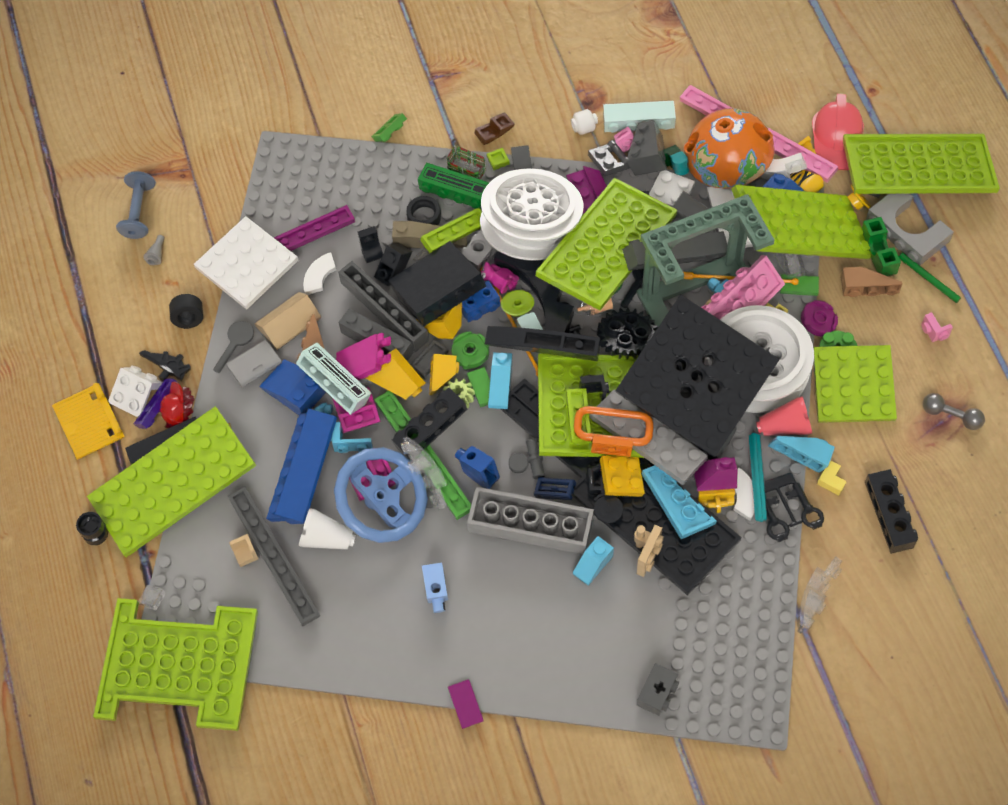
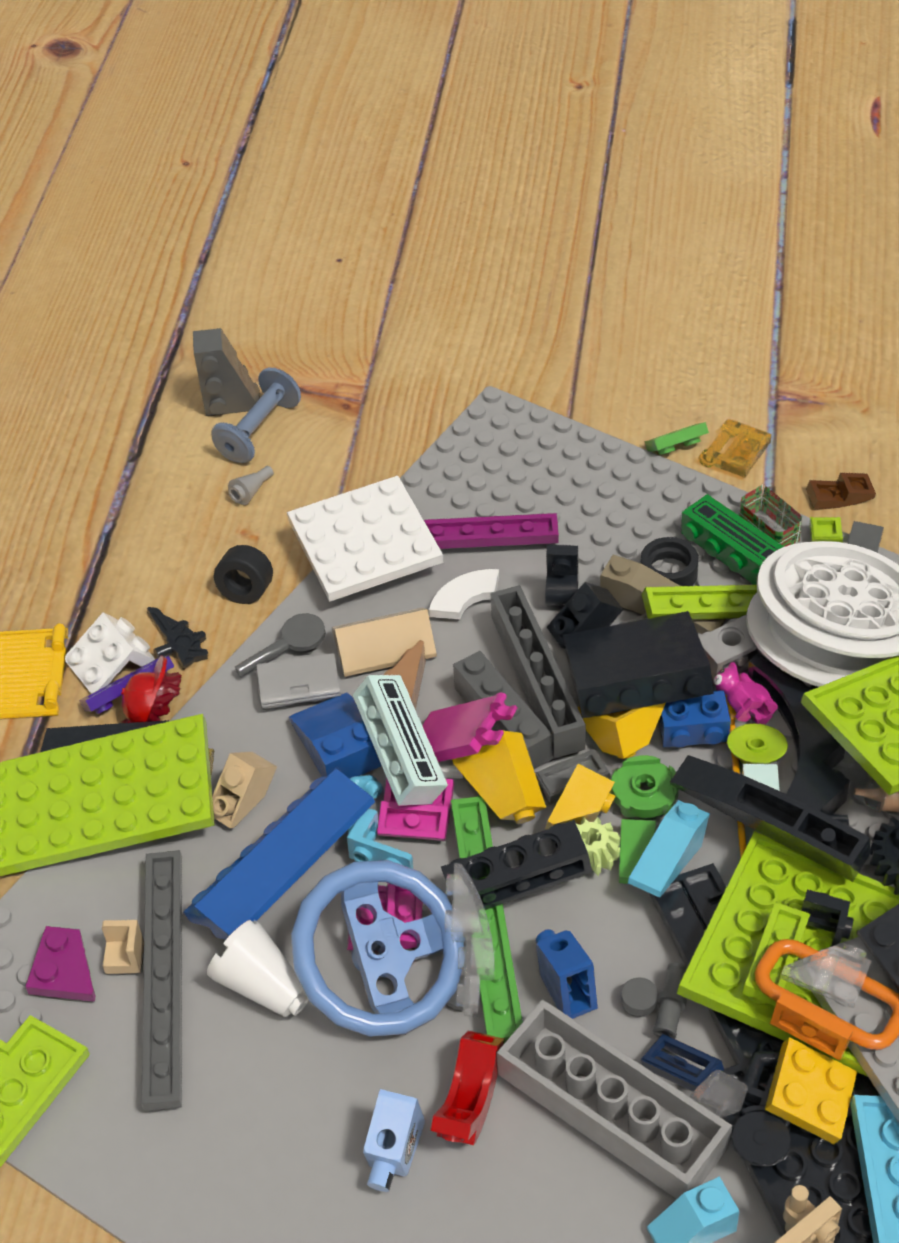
camera: 25 degrees right, 15 degrees down
(102, 188) = (222, 377): none -> dark grey wedge
(216, 573) = (61, 966): none -> magenta wing
(258, 437) = (241, 786): none -> tan slope
(430, 122) = (742, 452): none -> clear yellow plate
(460, 544) = (471, 1089): none -> red arch
(581, 496) = (720, 1094): none -> clear slope
(612, 416) = (831, 973): none -> clear slope

